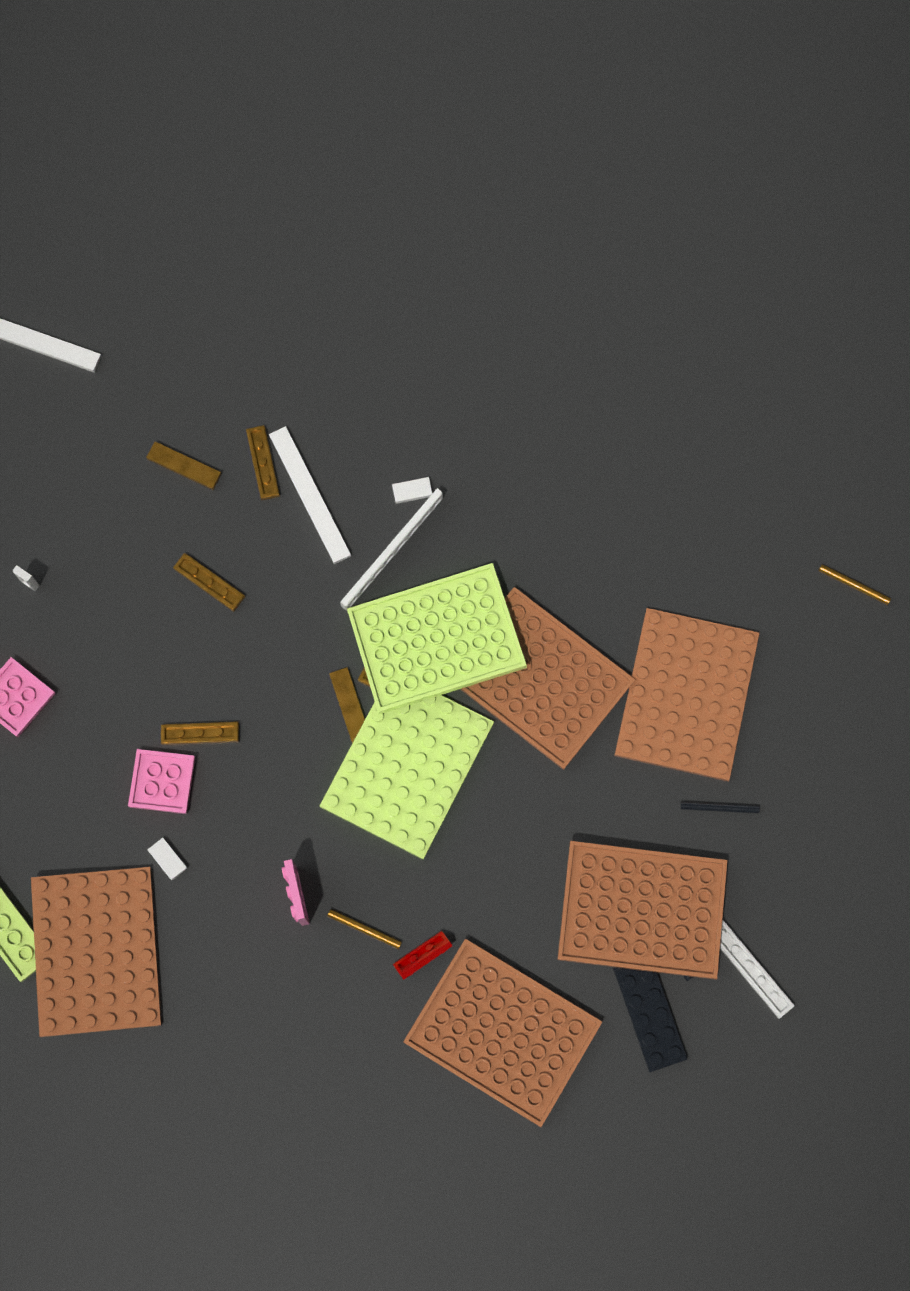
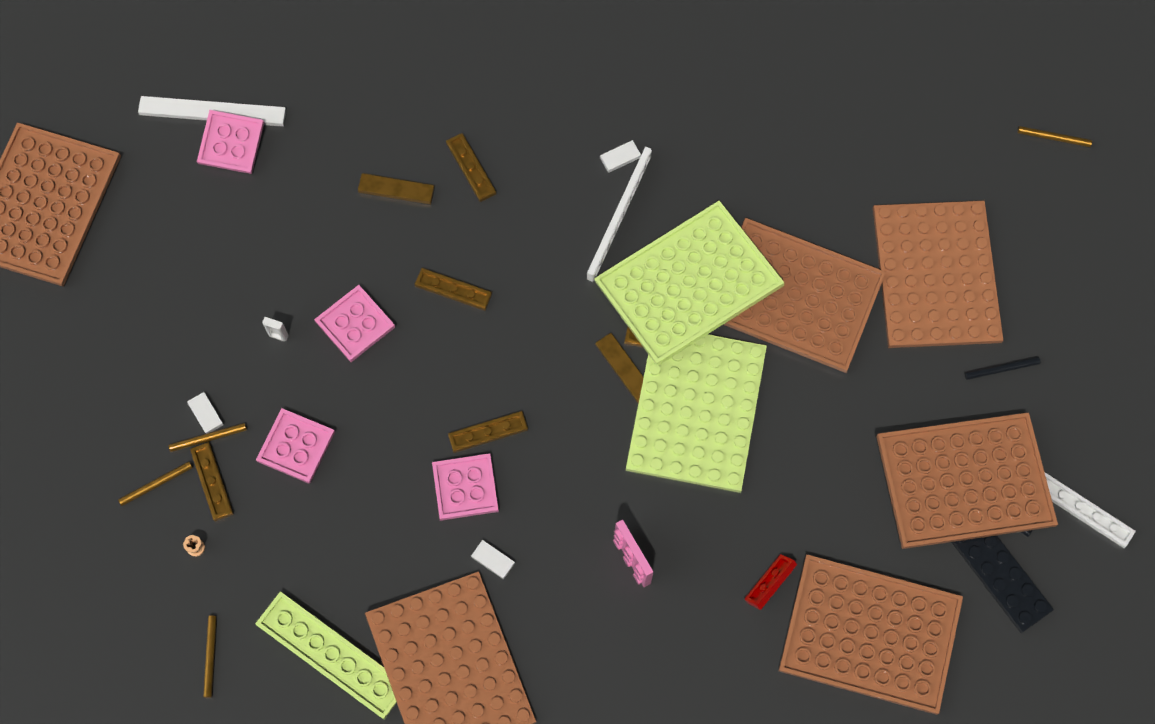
camera: 20 degrees left, 5 degrees down
(37, 376) = (230, 141): none -> bright pink plate
(104, 591) = (354, 323): none -> bright pink plate
(310, 495) = (525, 185): white tile -> none
(364, 929) = (706, 573): pearl gold bar -> none

